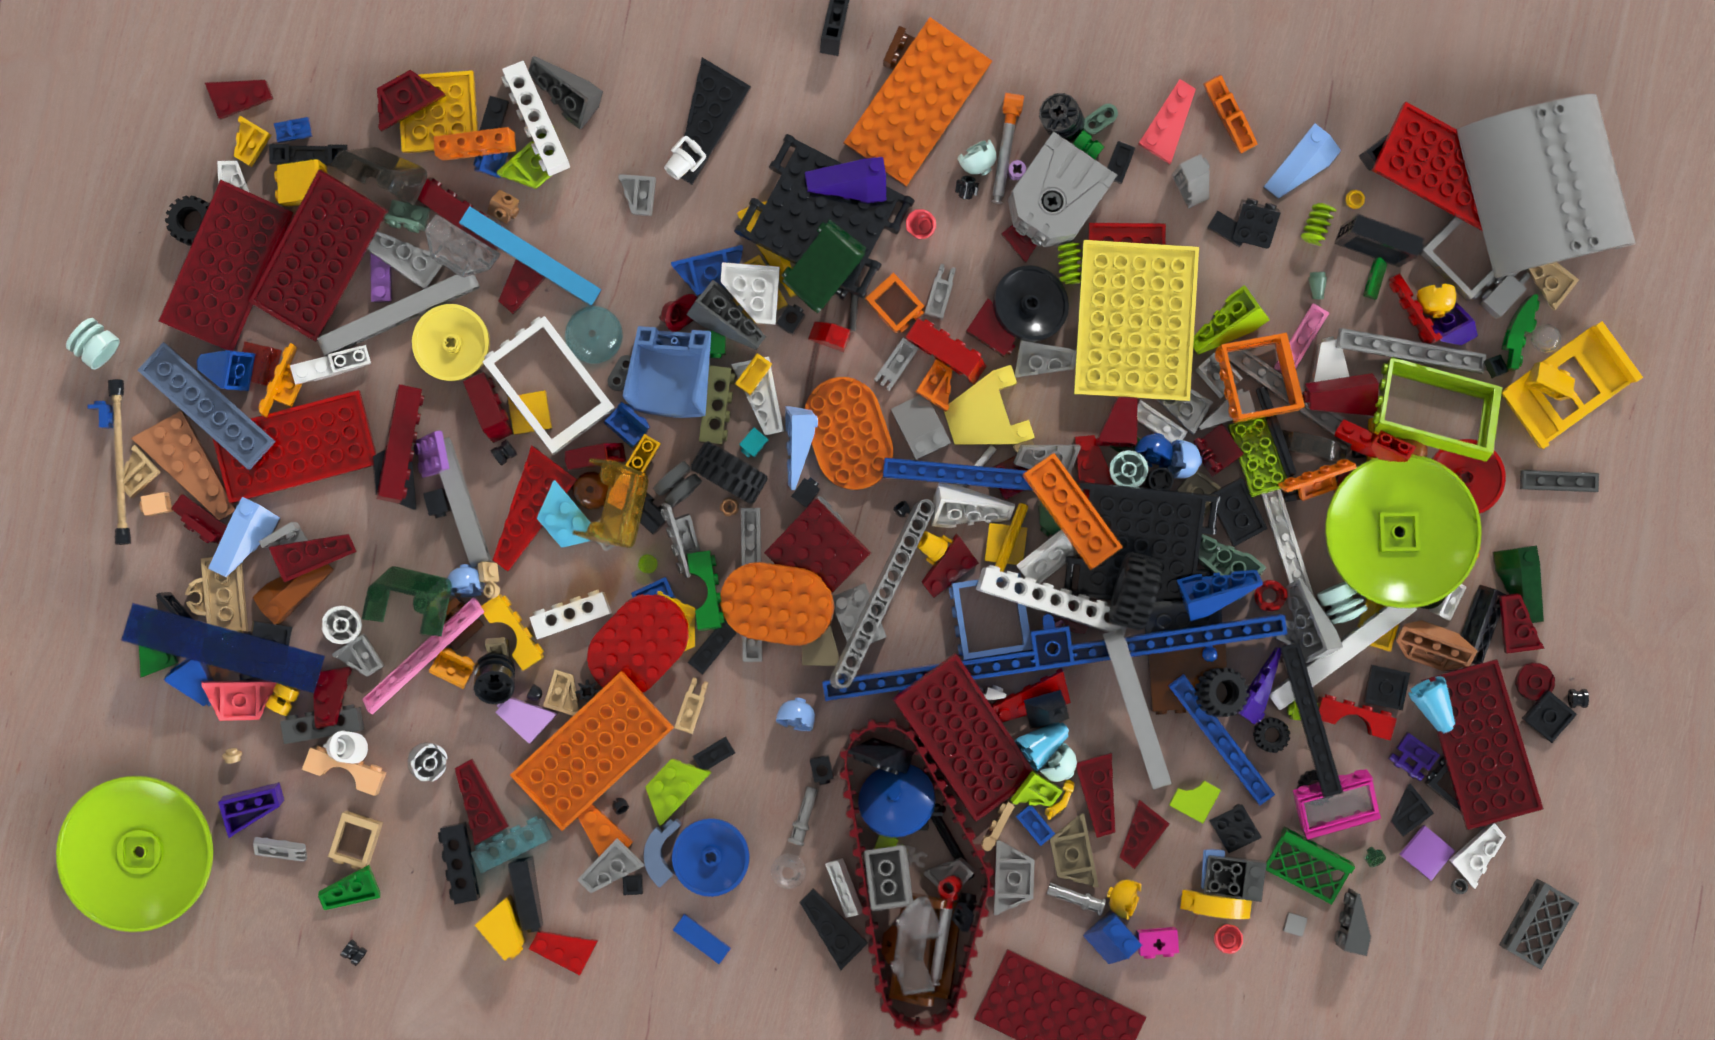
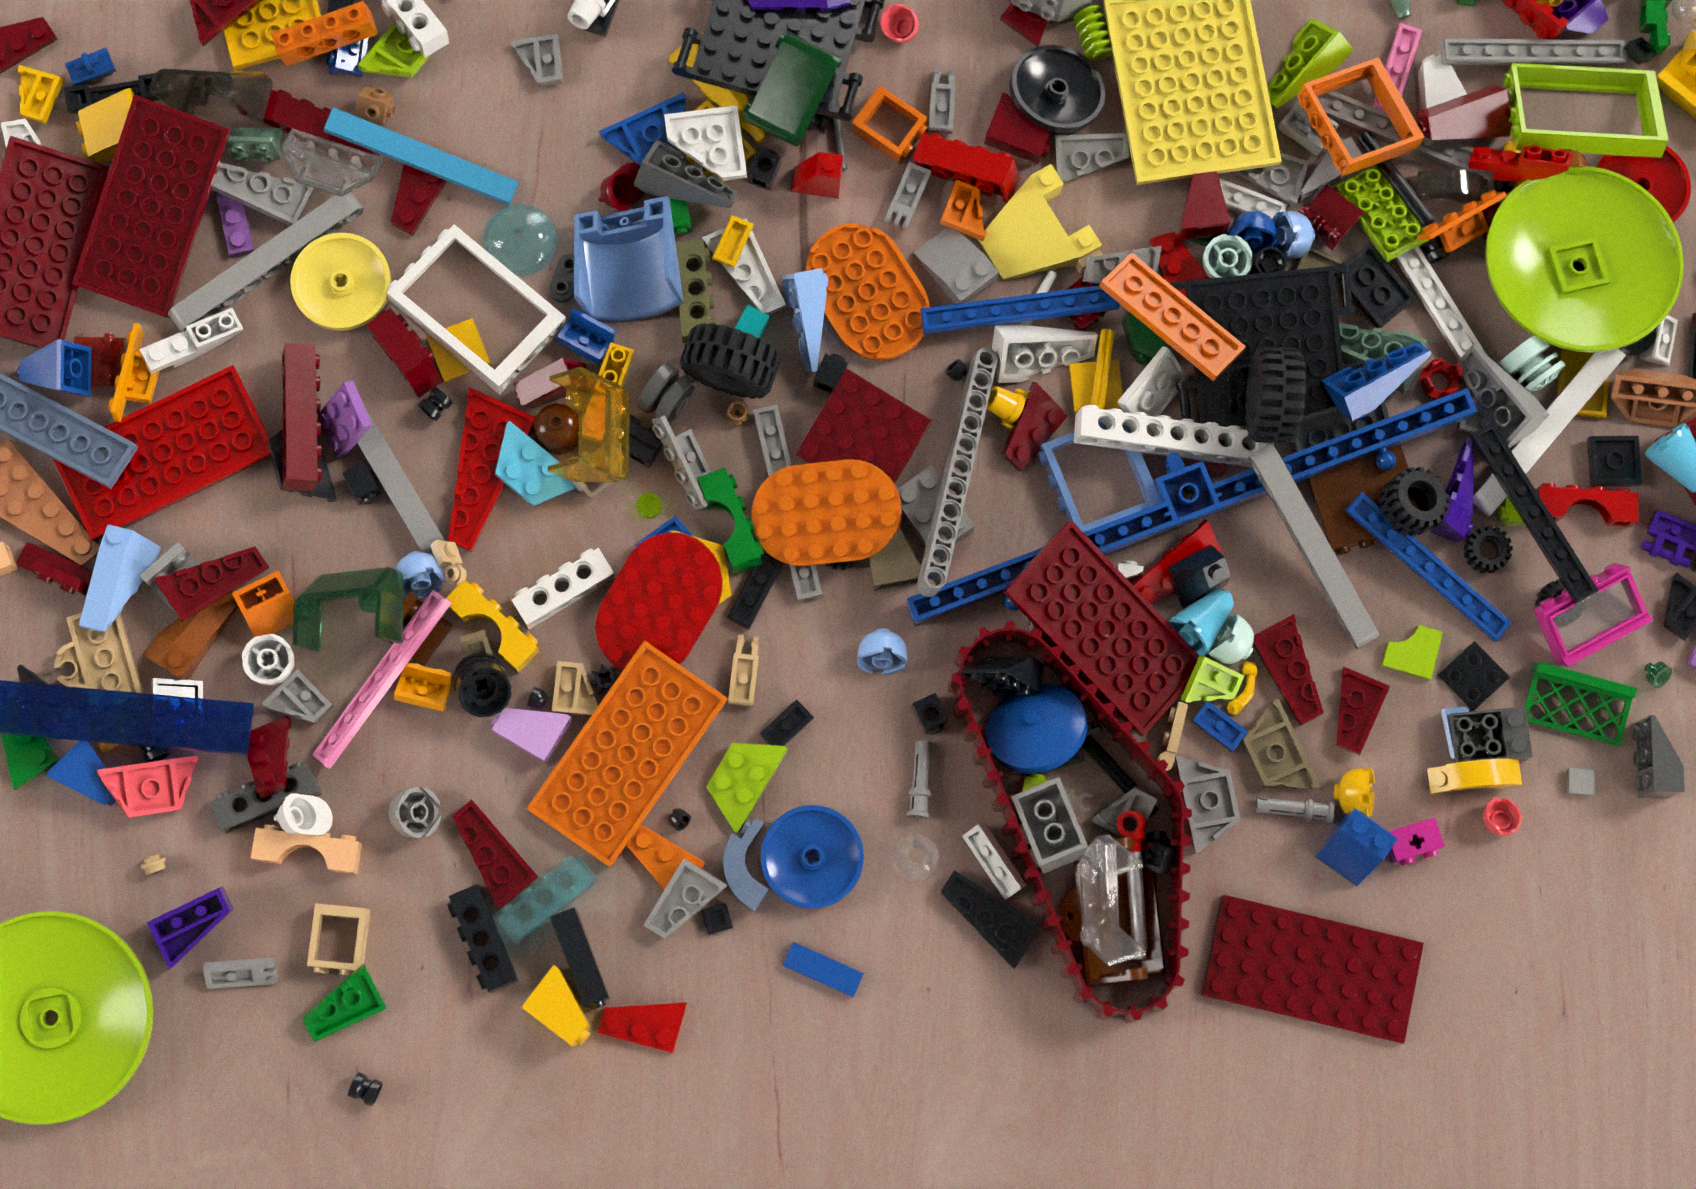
camera: 25 degrees left, 10 degrees down
(285, 692) = (209, 764): yellow wheel -> none
(348, 581) = (266, 605): none -> orange slope

